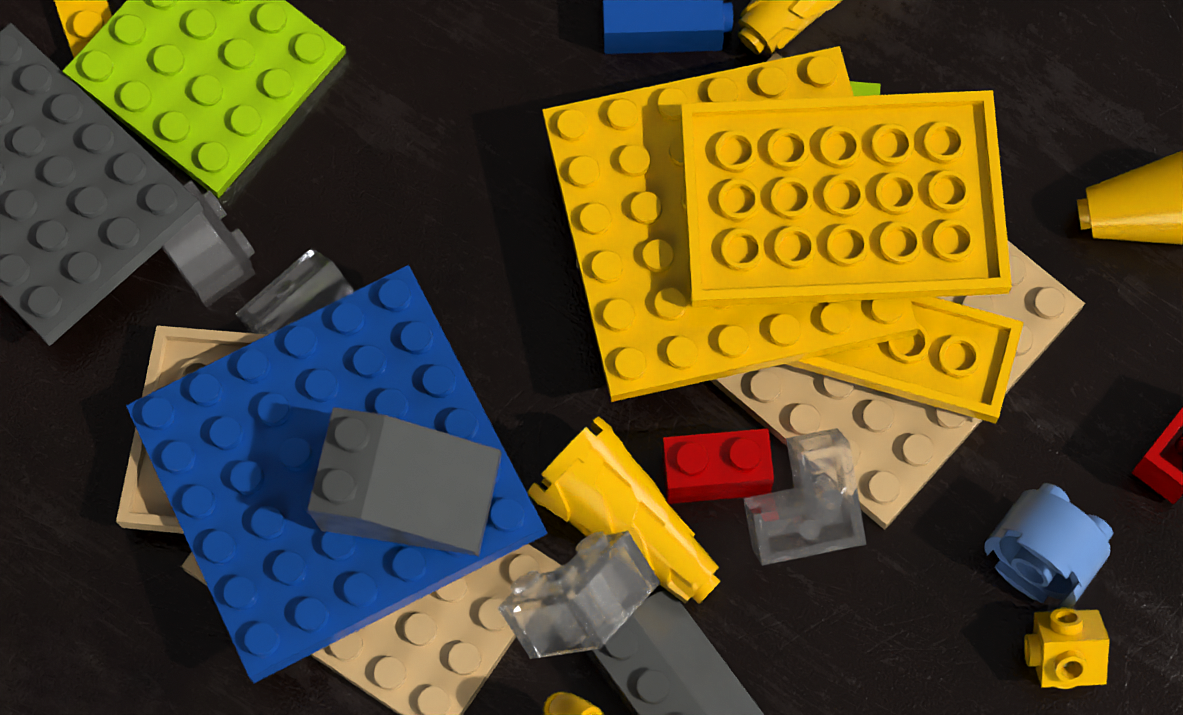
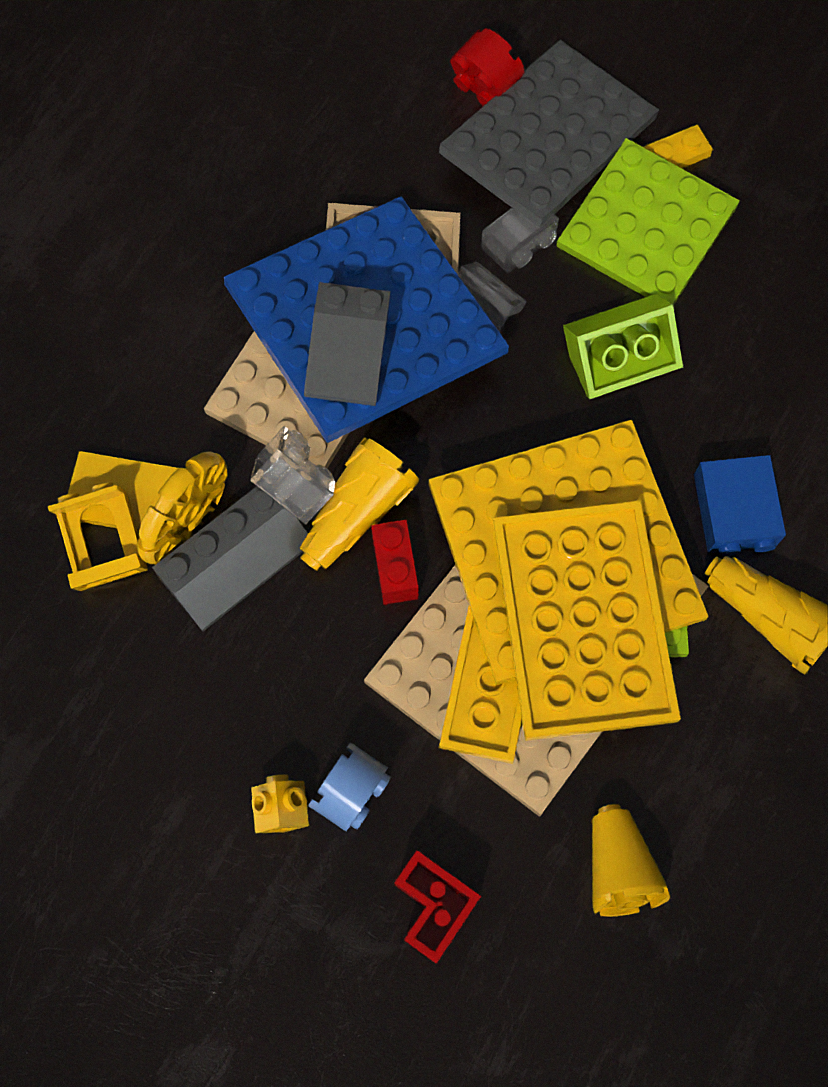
camera: 85 degrees right, 0 degrees up
(401, 117) = (624, 345): none -> lime slope
(818, 512) = (364, 624): clear brick -> none

